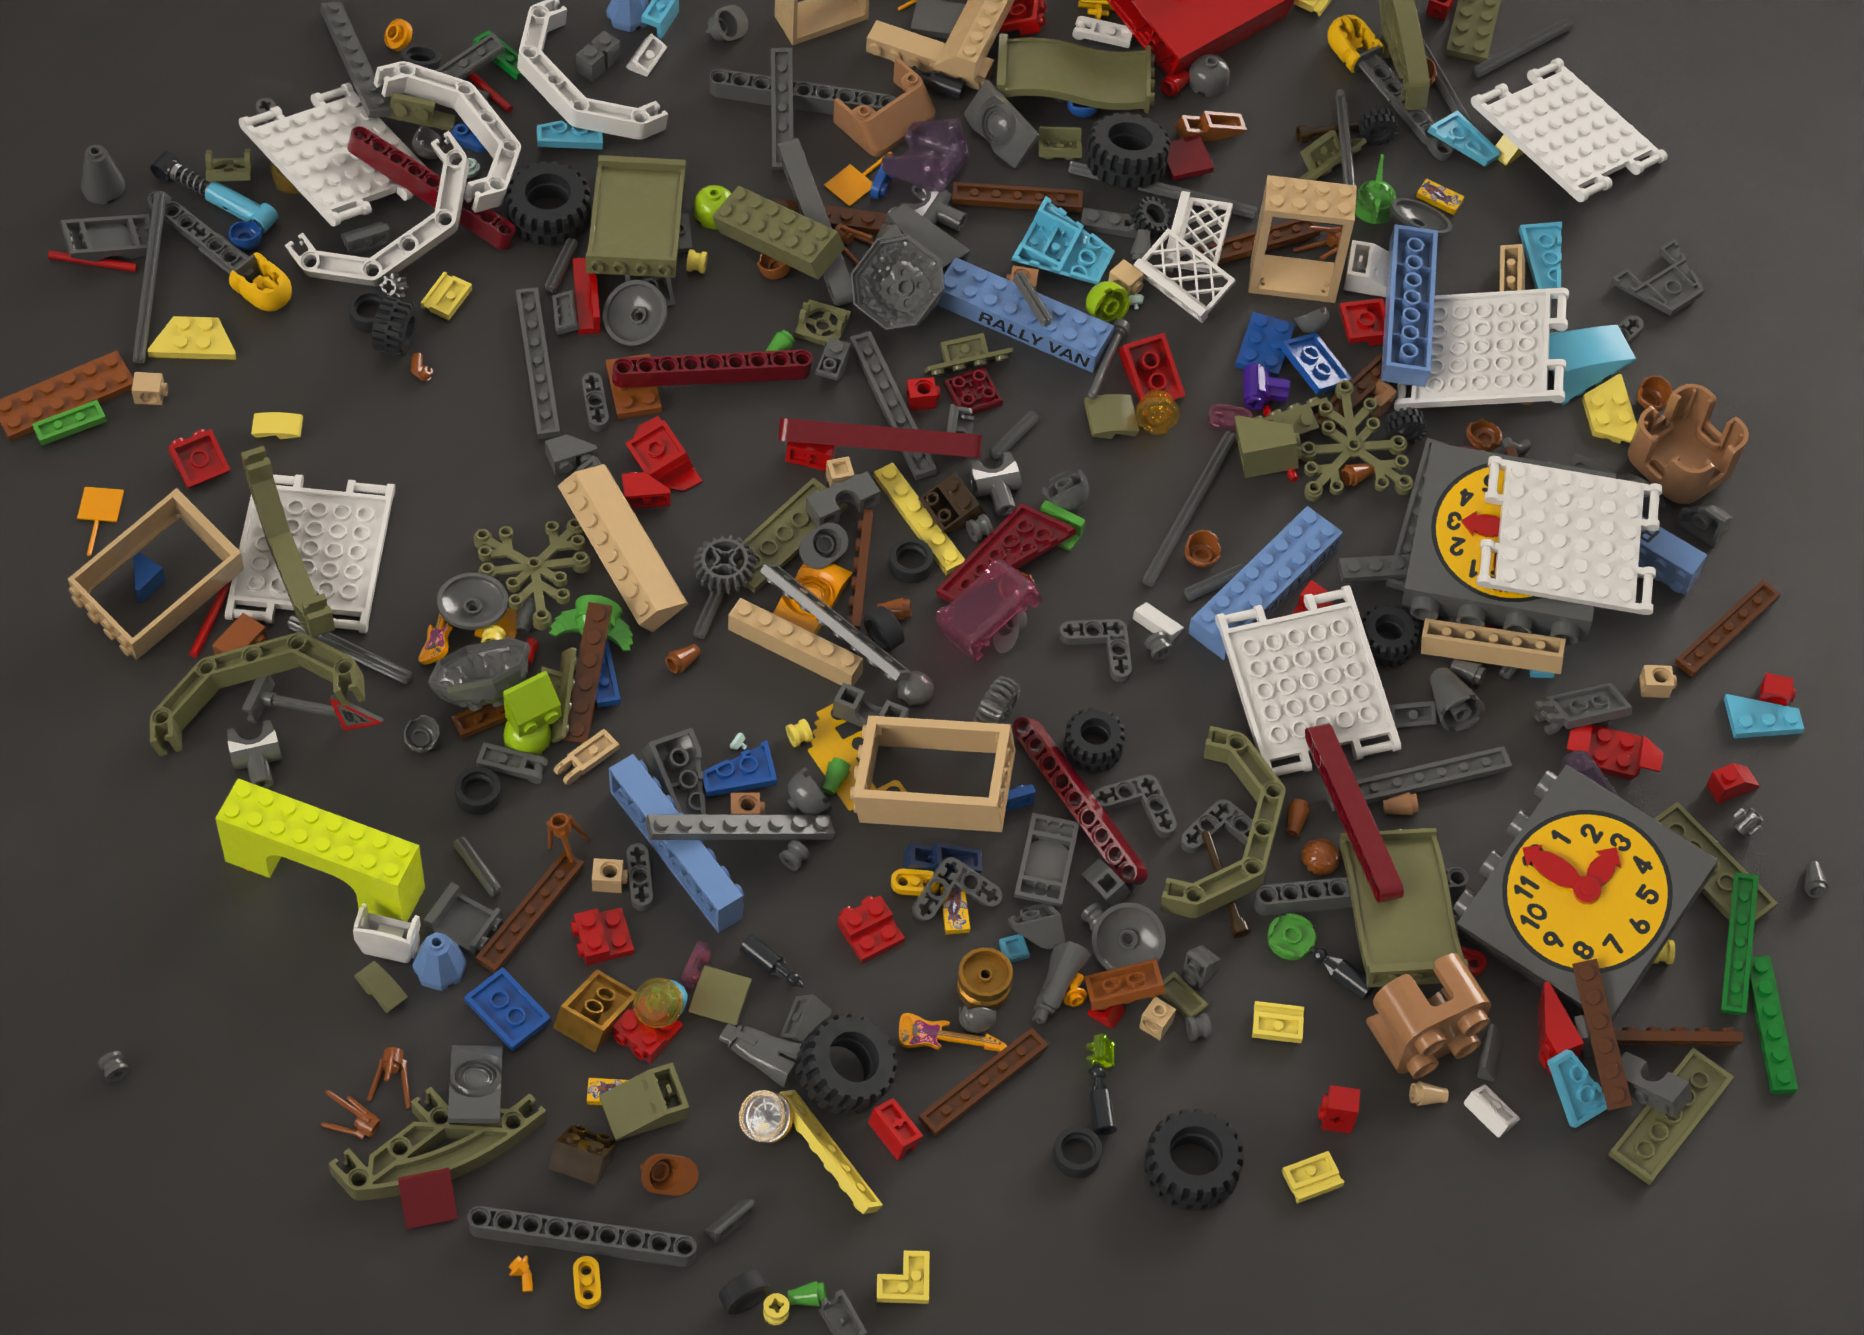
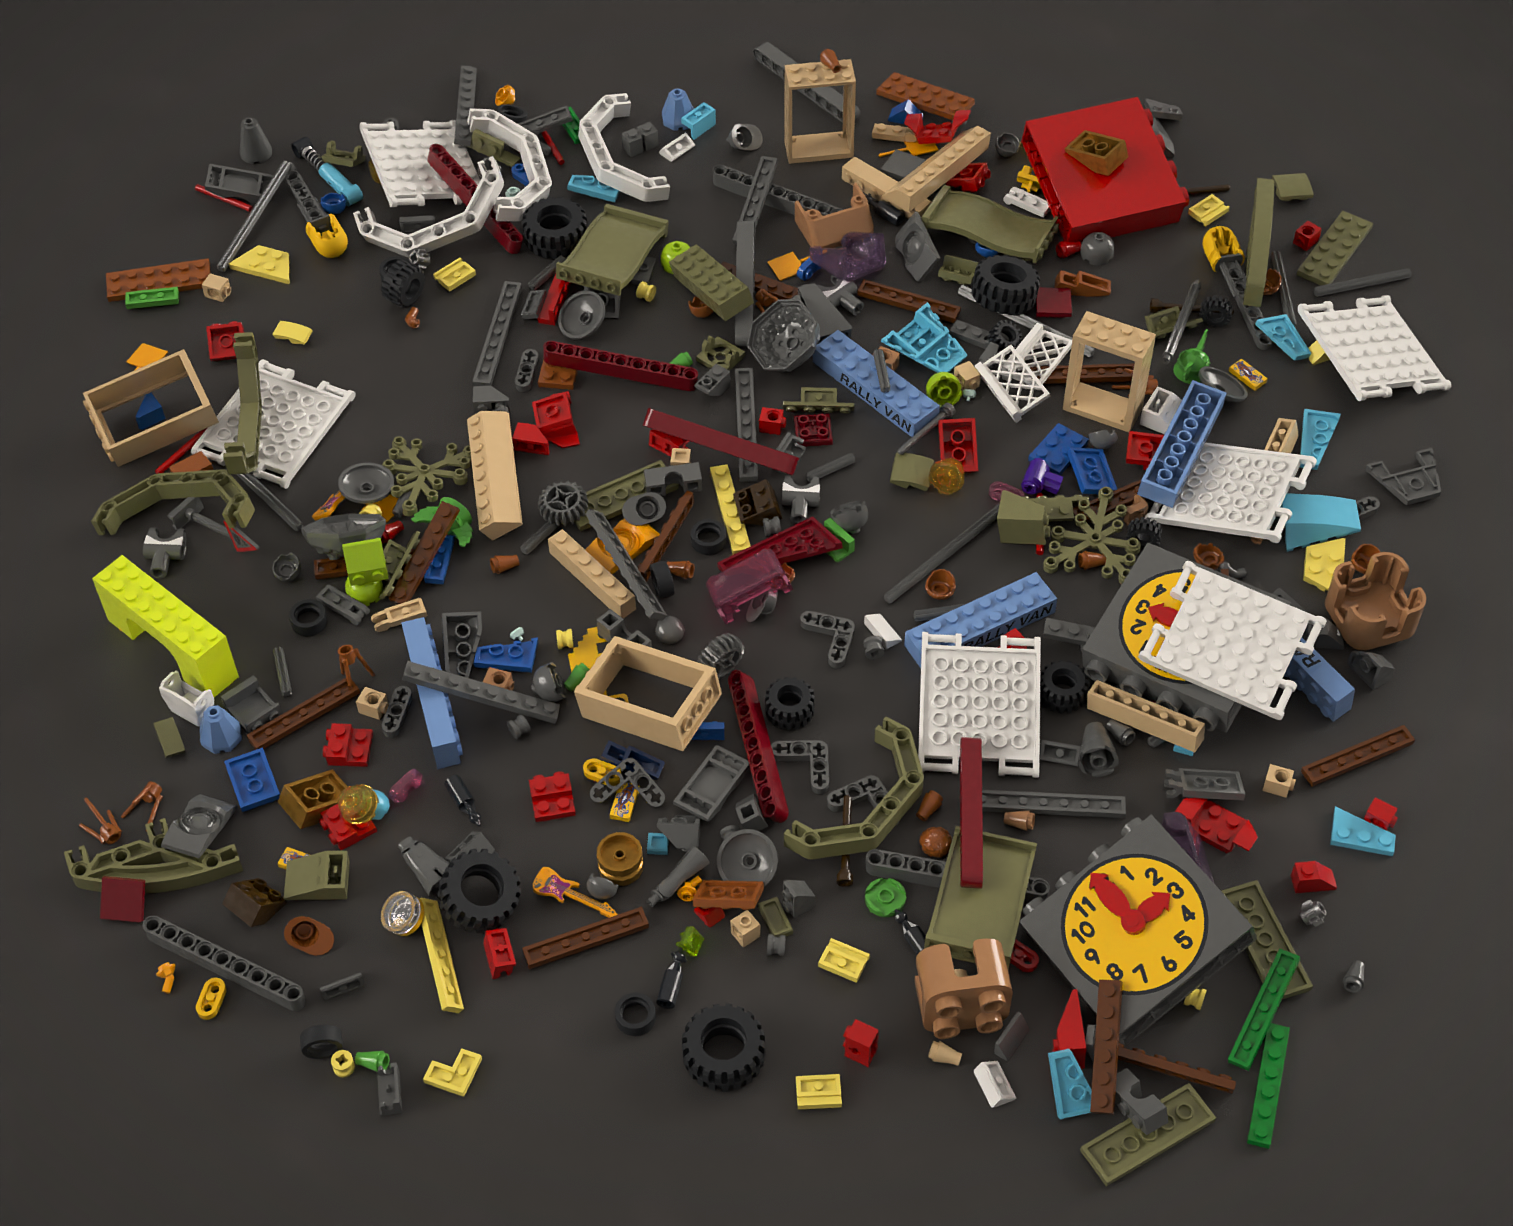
camera: 25 degrees right, 5 degrees down
(720, 995) = (413, 814): olive slope -> none

